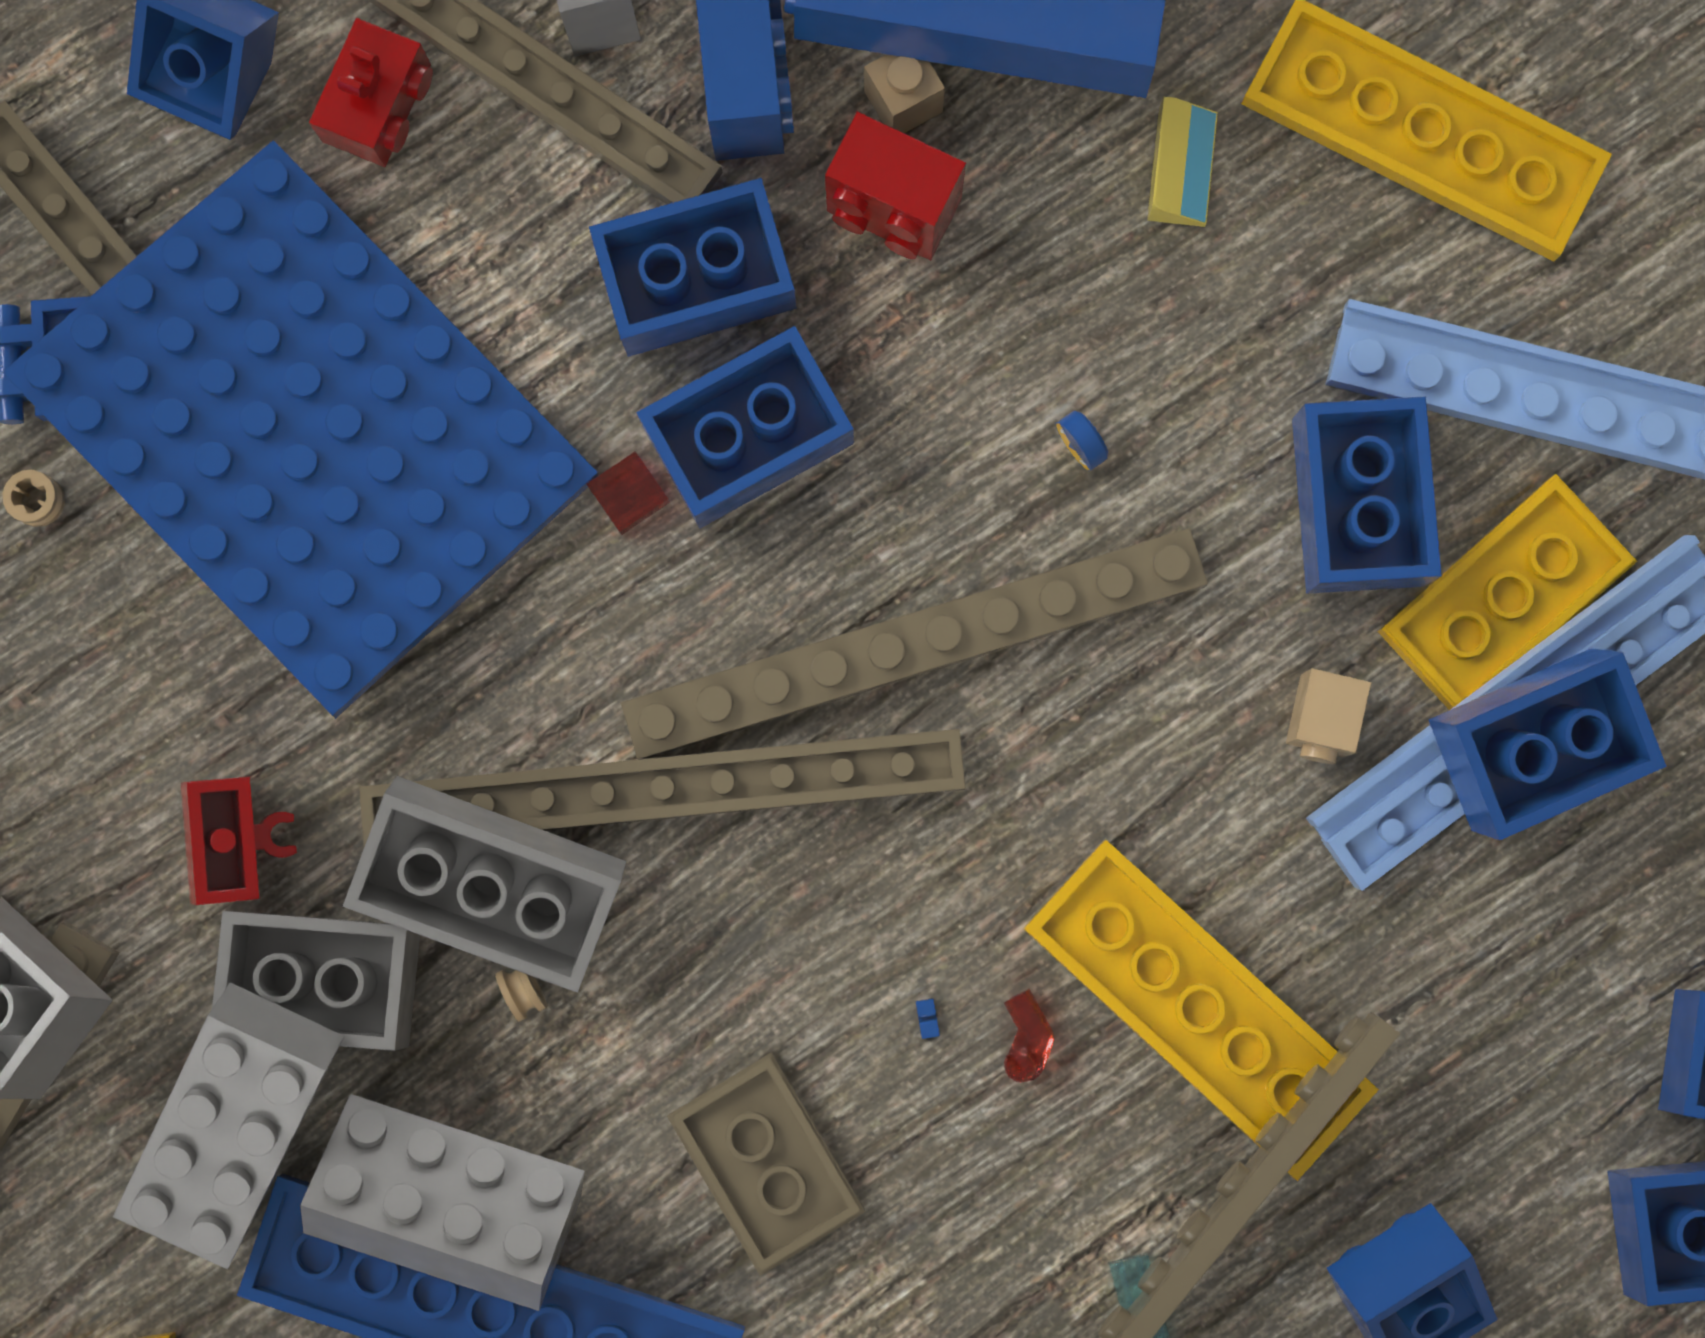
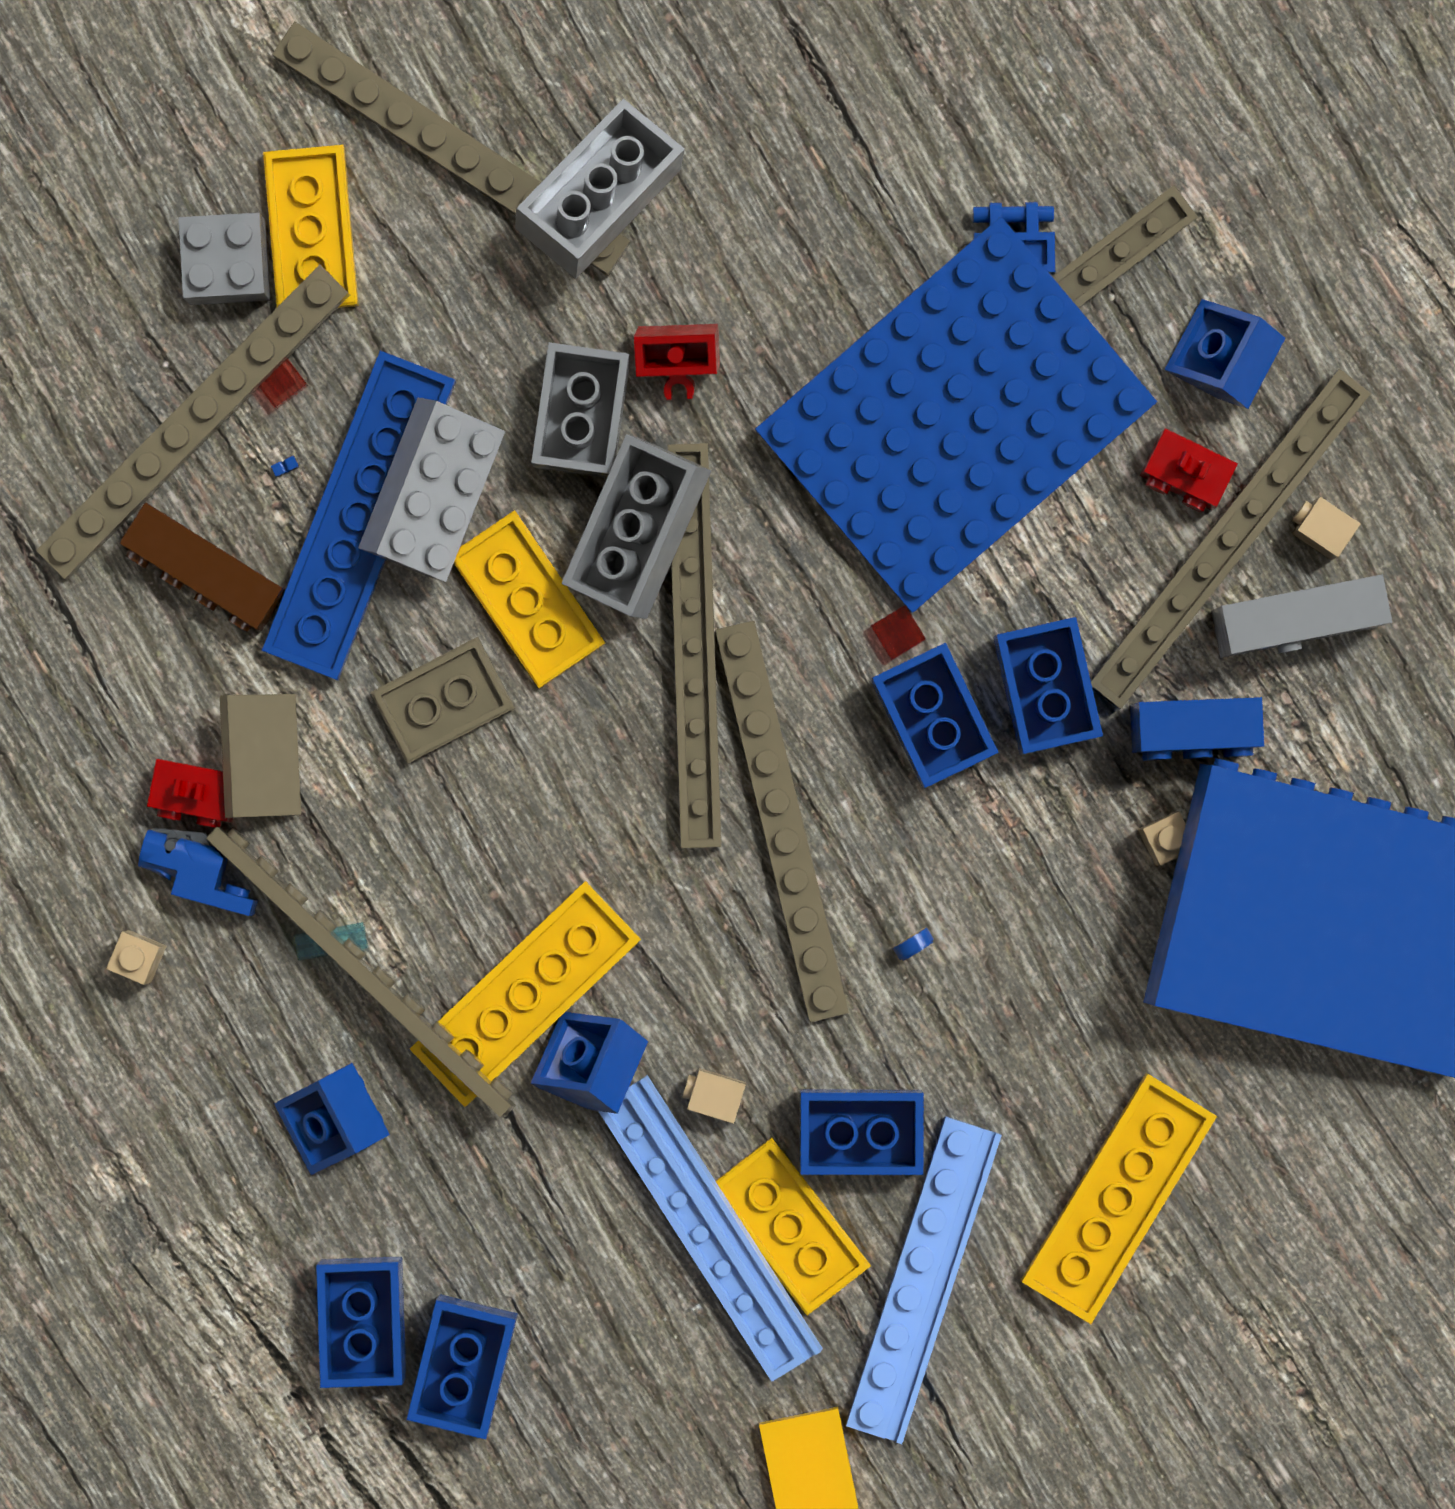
camera: 90 degrees right, 5 degrees up
(17, 487) = (929, 234): tan bush -> none
(227, 1125) = (489, 353): light grey brick -> none
(520, 993) = (564, 544): tan bush -> none
(606, 1044) = (527, 599): none -> yellow tile
(893, 187) = (1092, 826): red brick -> none
(927, 1018) = (530, 813): blue piece -> none
(1033, 1039) = (511, 882): clear red arm -> none
(1182, 163) = (1105, 1029): light yellow slope -> none
(1295, 903) = (590, 1061): none -> blue slope
(1547, 743) = (684, 1234): blue brick -> none

